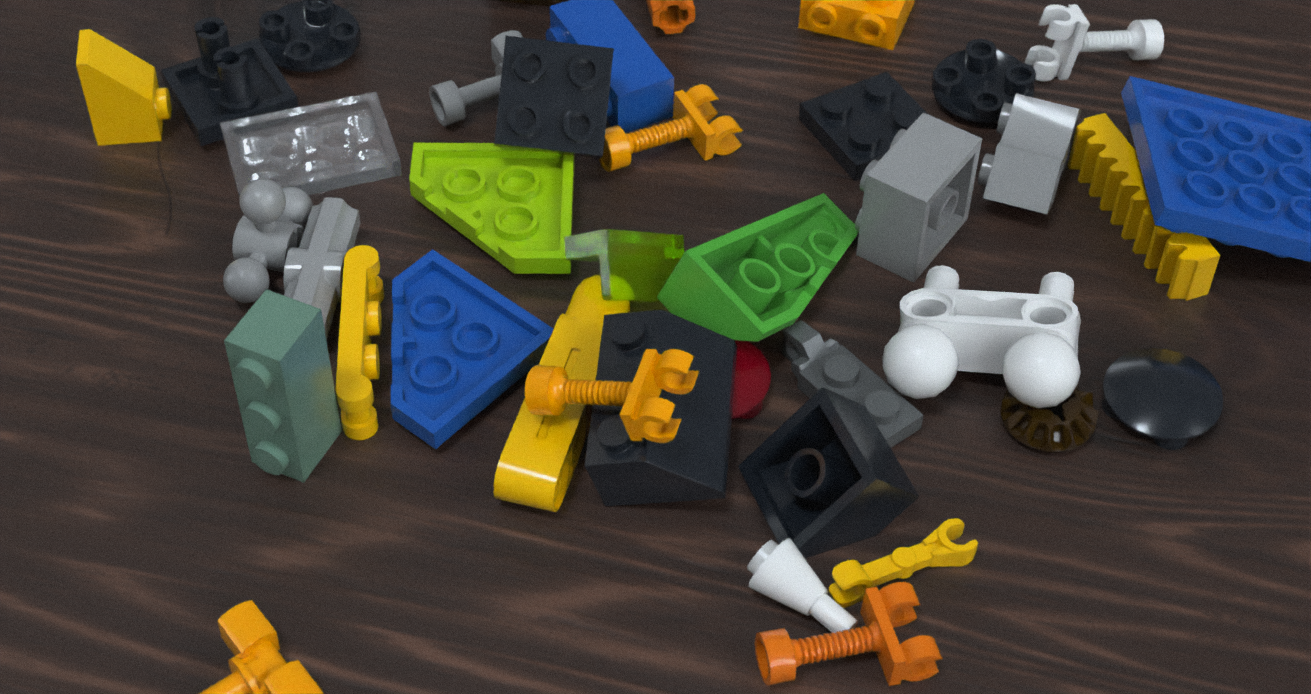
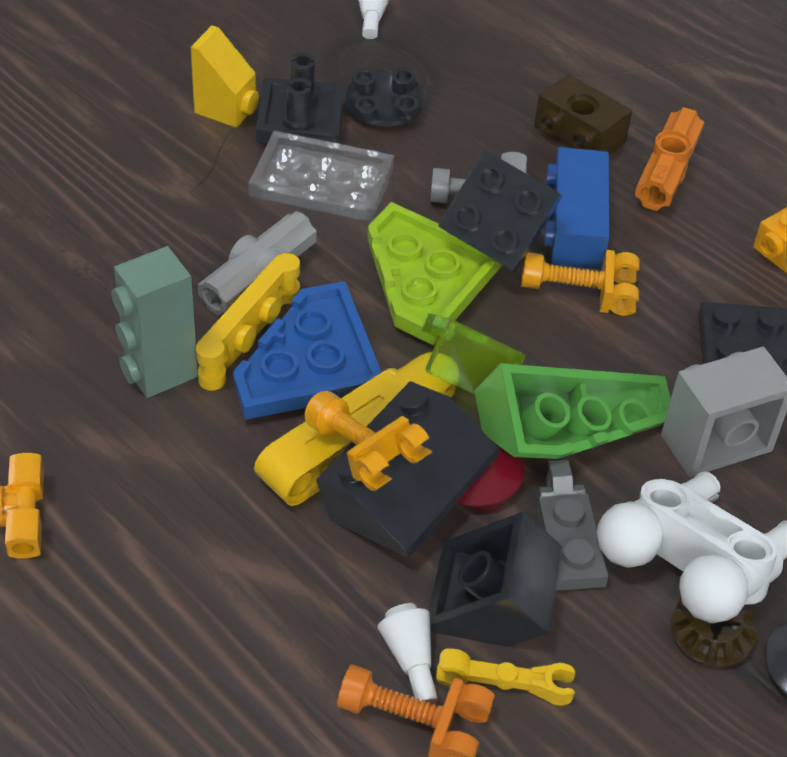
camera: 30 degrees right, 0 degrees up
(264, 235) = (239, 218): light grey piece -> none

